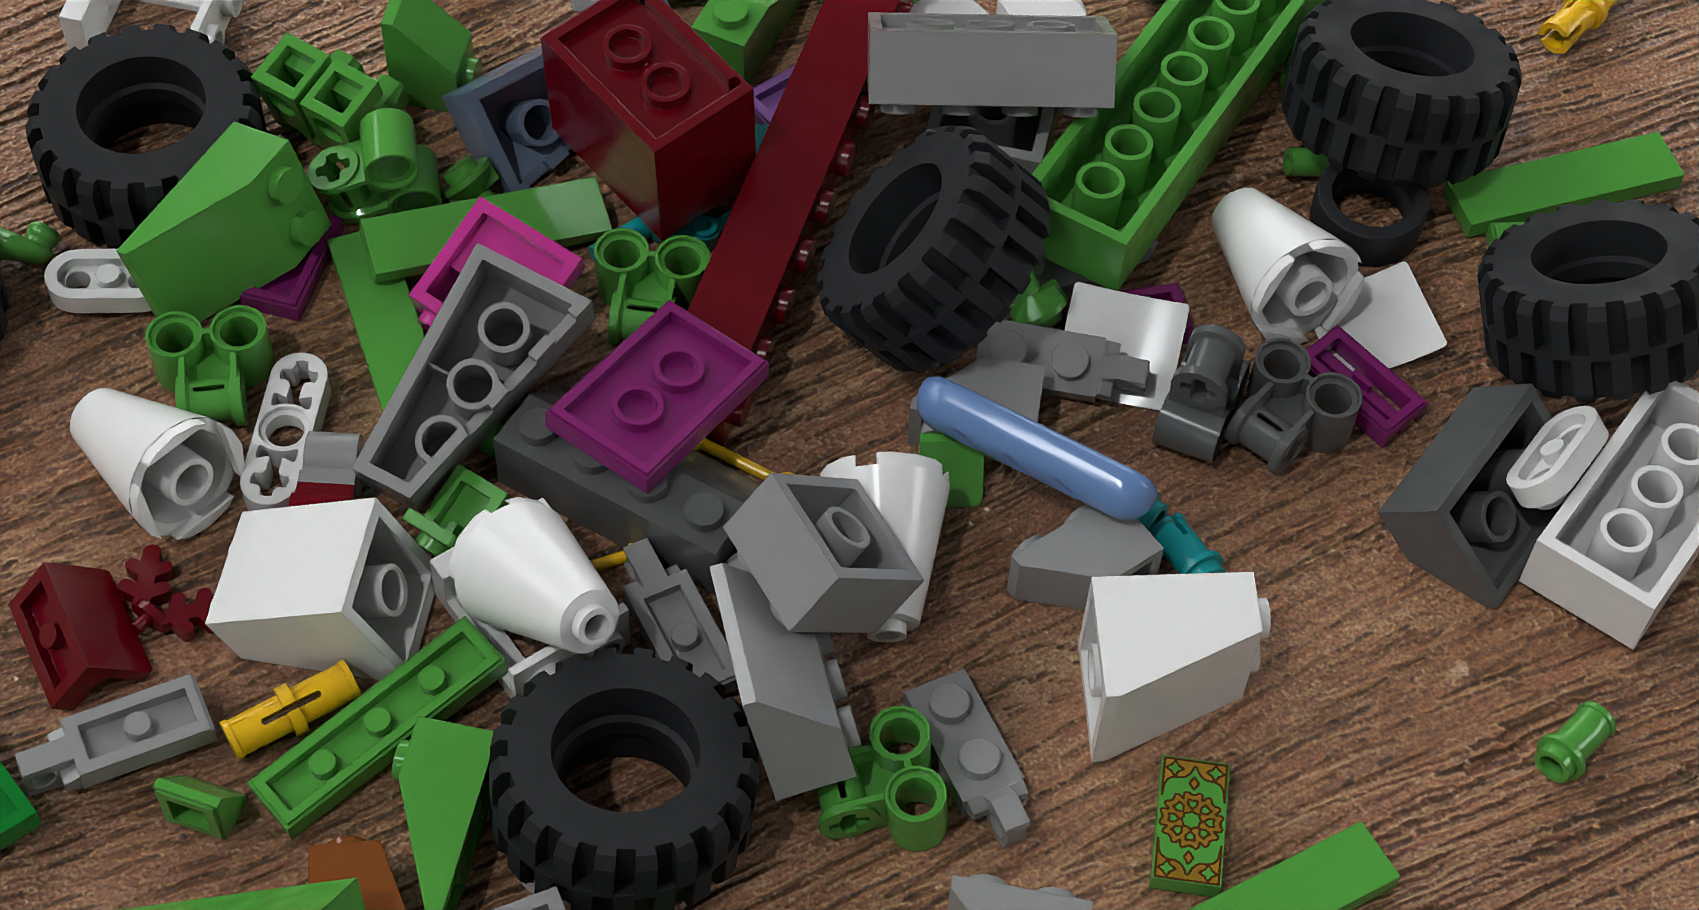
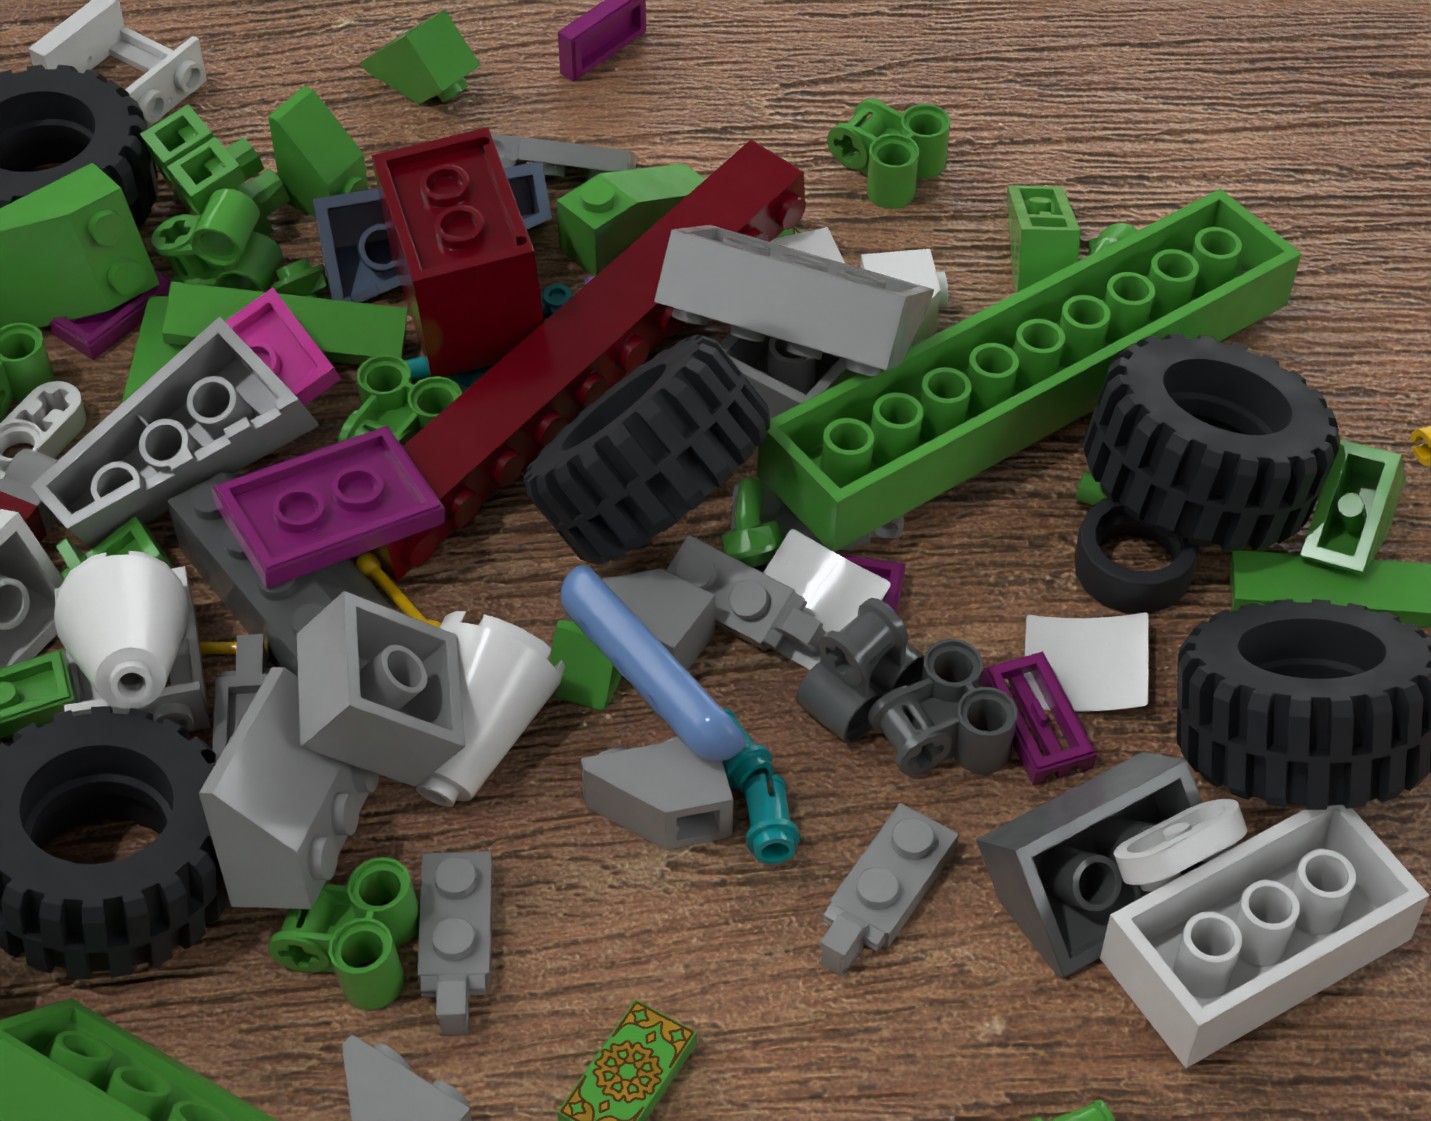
camera: 25 degrees right, 5 degrees down
(1165, 652) = (674, 900): white slope -> none
(1285, 266) = (1011, 582): white cone -> none
(1312, 579) = (885, 886): none -> light grey hinge
(1540, 118) = (1355, 507): none -> bright green slope

